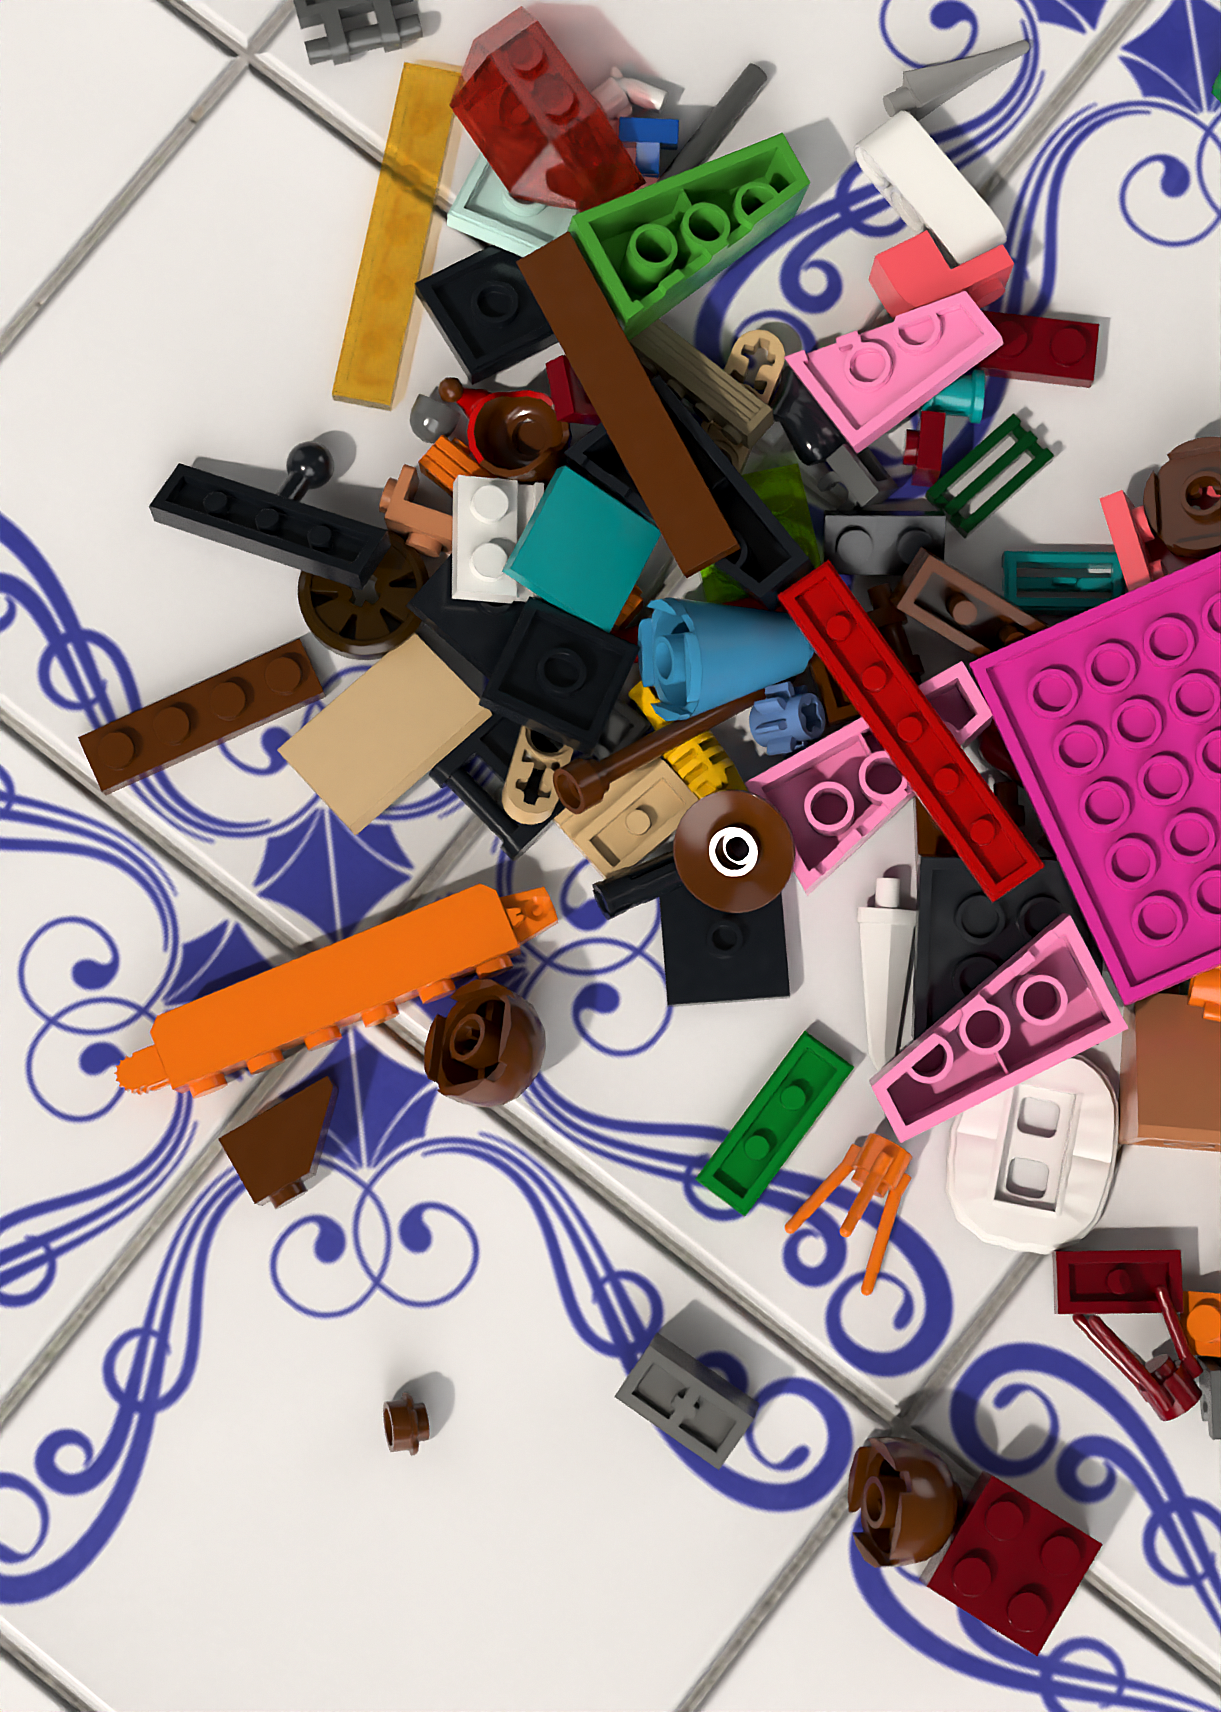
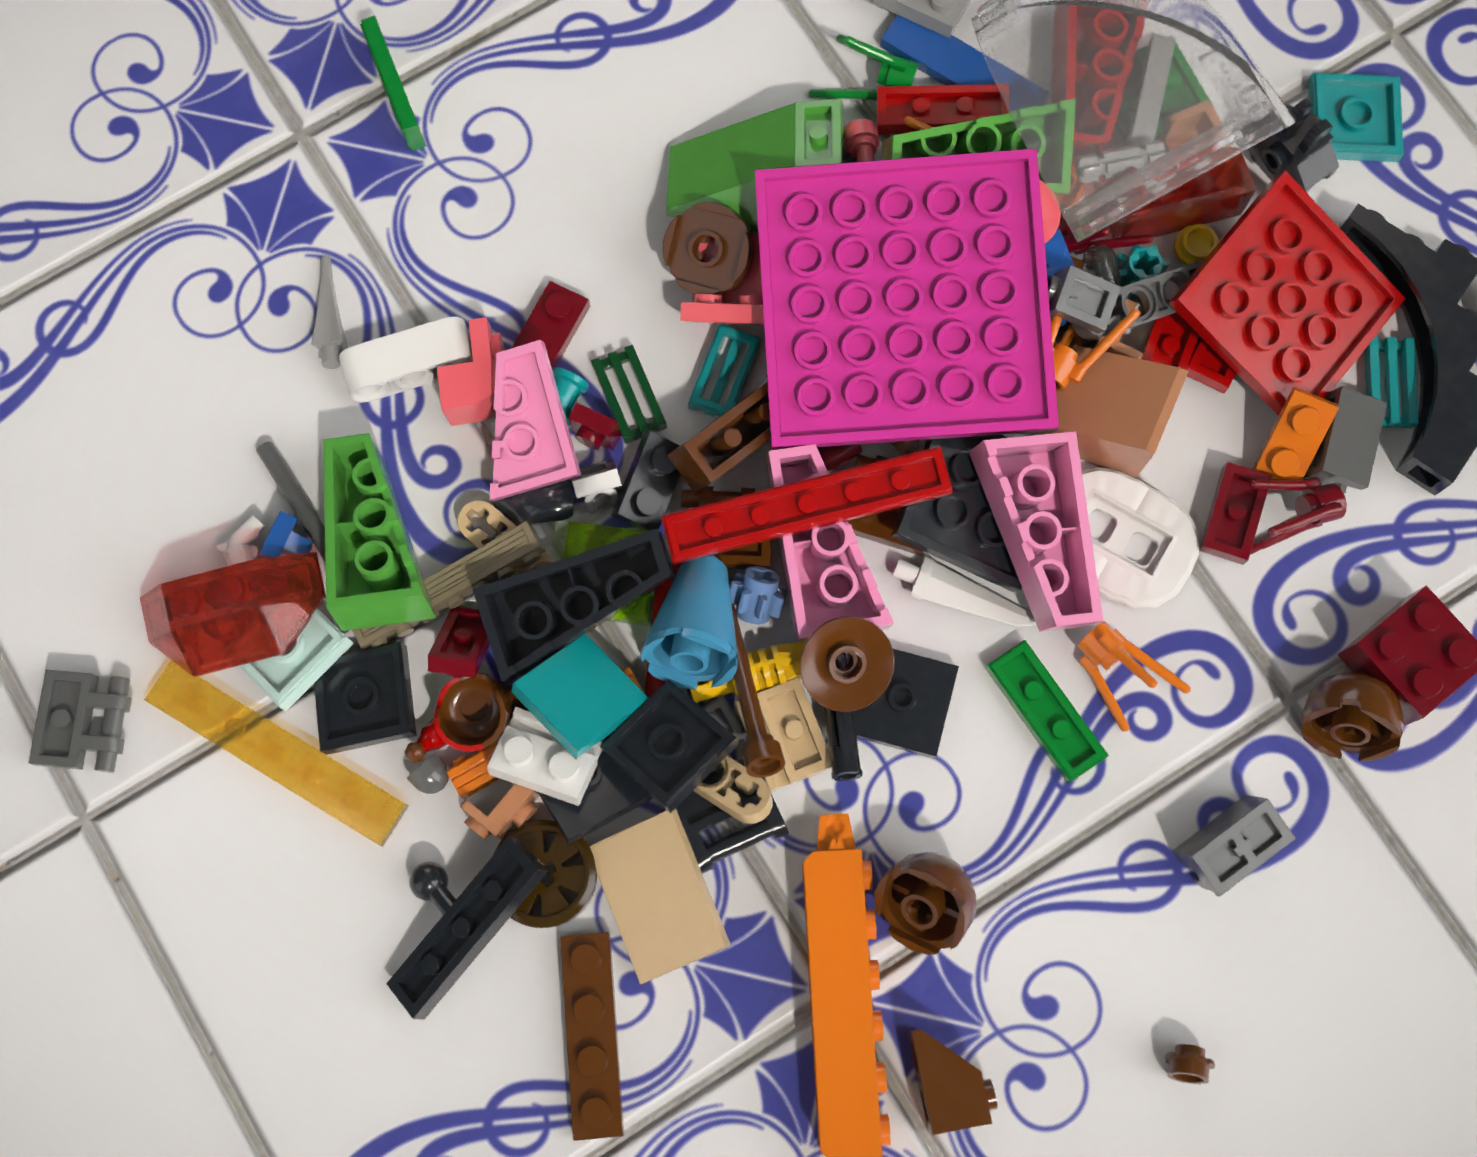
camera: 70 degrees left, 5 degrees down
(628, 405) = (485, 619): reddish brown tile -> none

